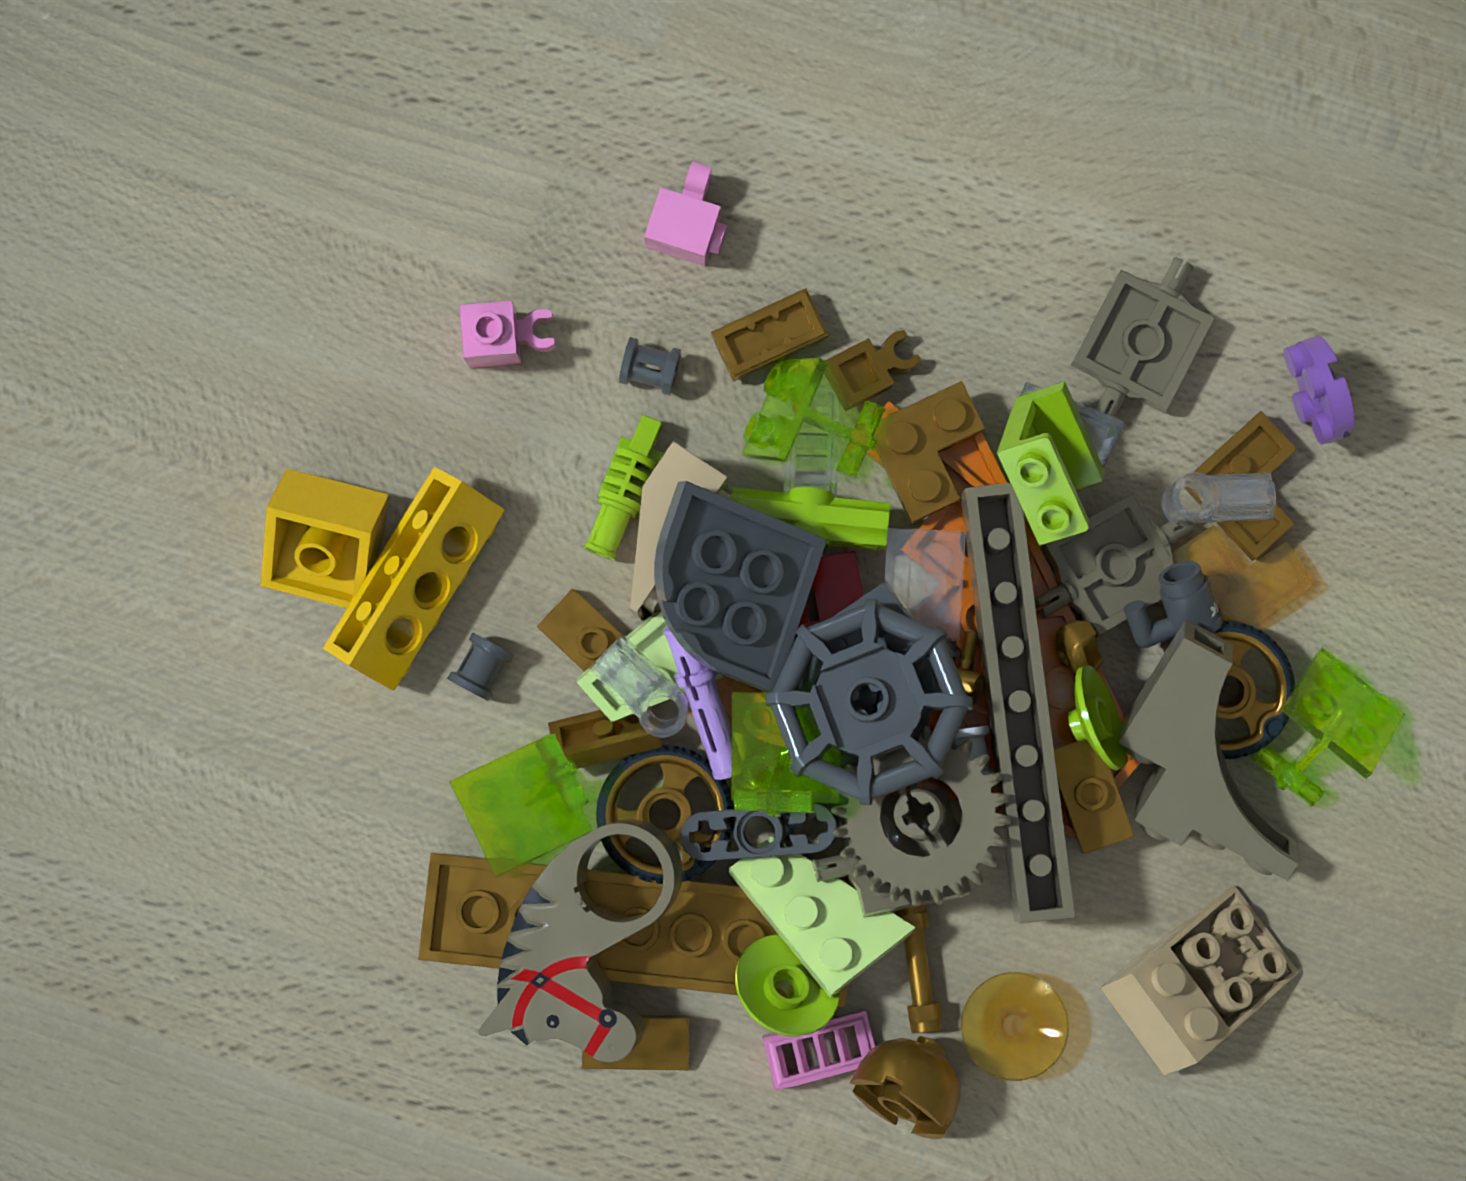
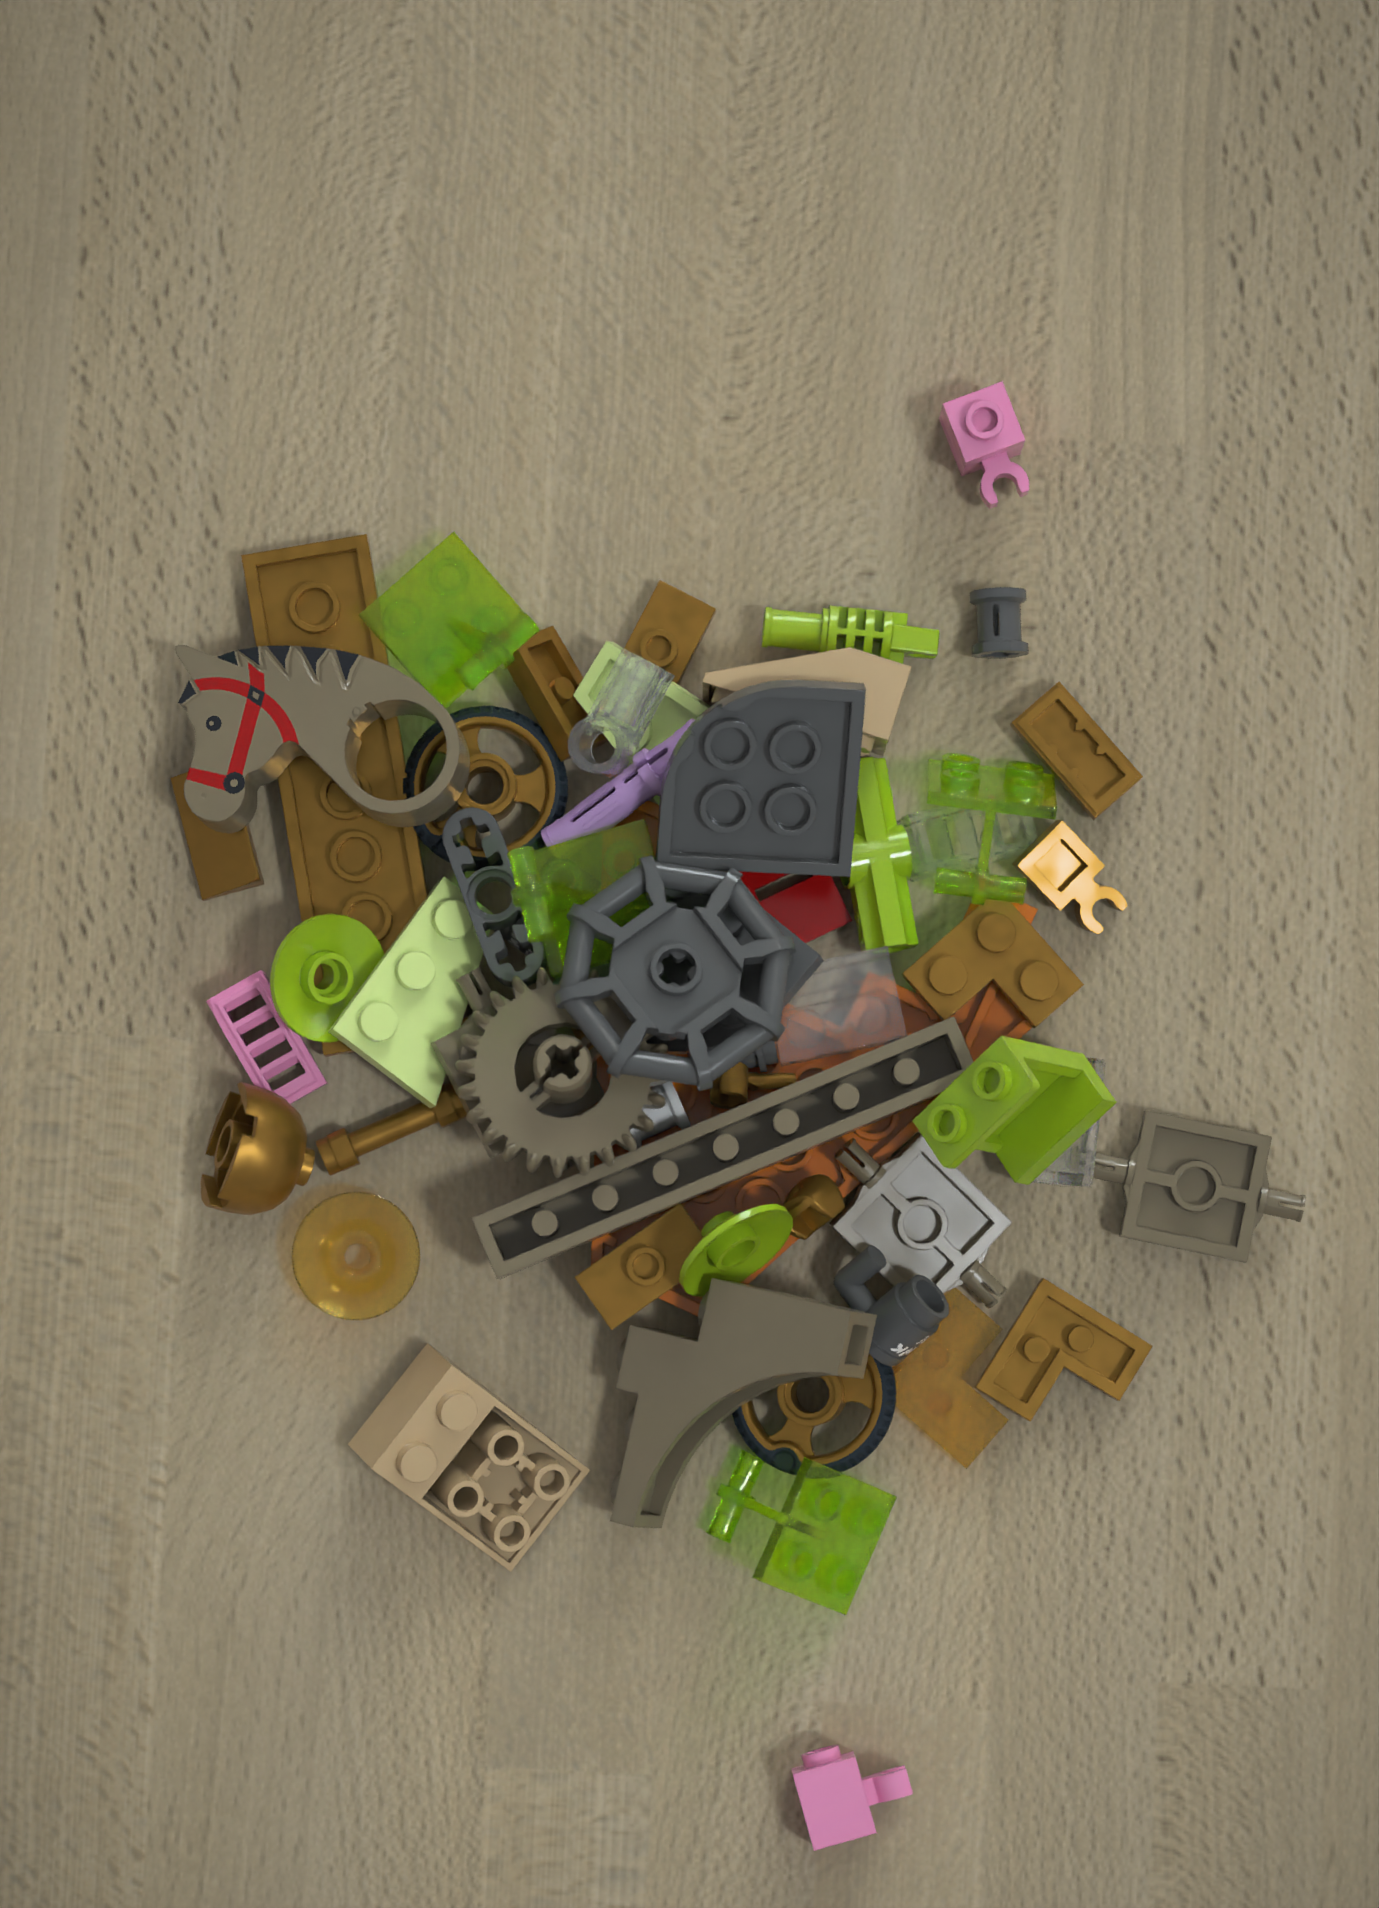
camera: 70 degrees right, 0 degrees up
(321, 537) = (690, 307): yellow slope -> none
(412, 555) = (702, 412): yellow brick -> none
(480, 666) = (594, 529): dark grey bush -> none
(686, 223) = (1178, 614): bright pink brick -> none
(1223, 498) = (1034, 1328): clear piece -> none
(1321, 395) = (1193, 1405): medium lavender plate -> none

